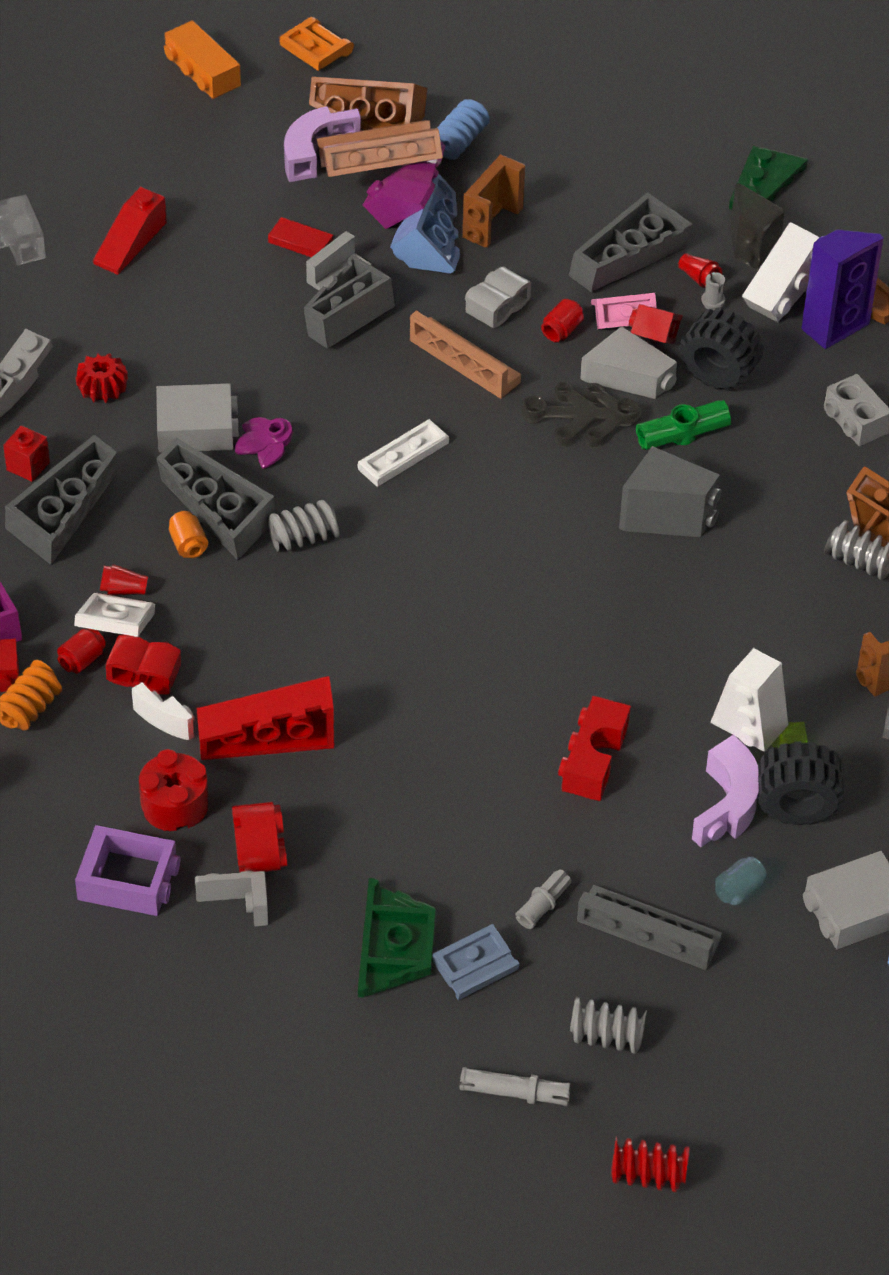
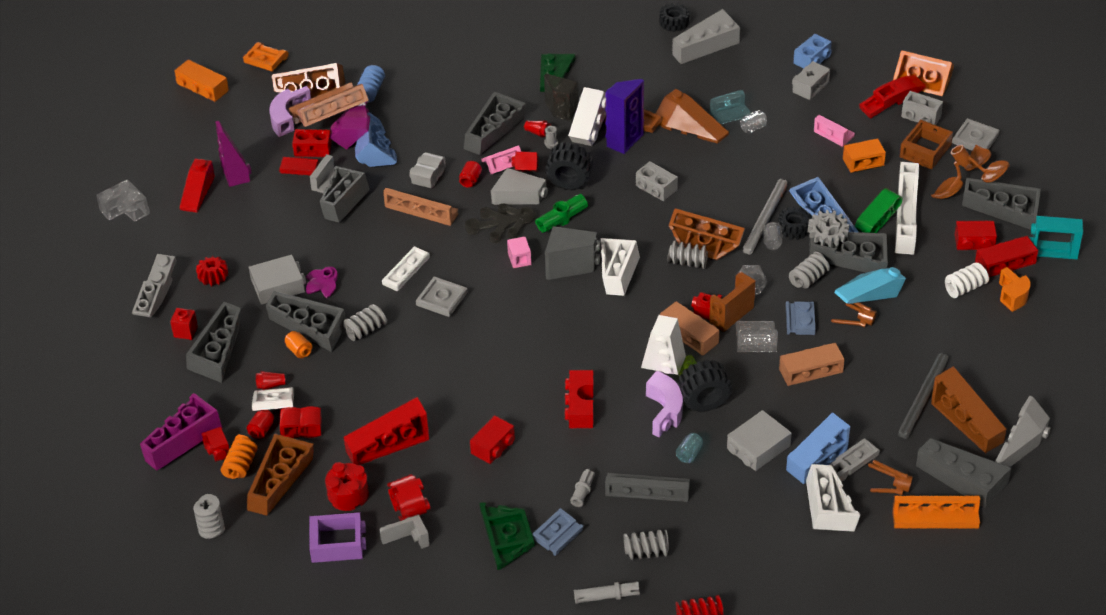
camera: 15 degrees left, 5 degrees down
(75, 738) = (277, 473): none -> dark orange wedge
(166, 715) = (325, 447): white slope -> none
(197, 205) = (231, 159): none -> magenta wedge
(333, 205) = (311, 143): none -> red brick
(430, 777) = (492, 439): none -> red brick
(440, 514) = (441, 296): none -> light grey plate
(495, 189) = (406, 111): dark orange panel -> none
(590, 473) = (519, 252): none -> bright pink panel
(740, 536) = (618, 264): none -> white wedge
(818, 676) = (694, 330): none -> nougat brick
(850, 641) = (702, 305): none -> red brick

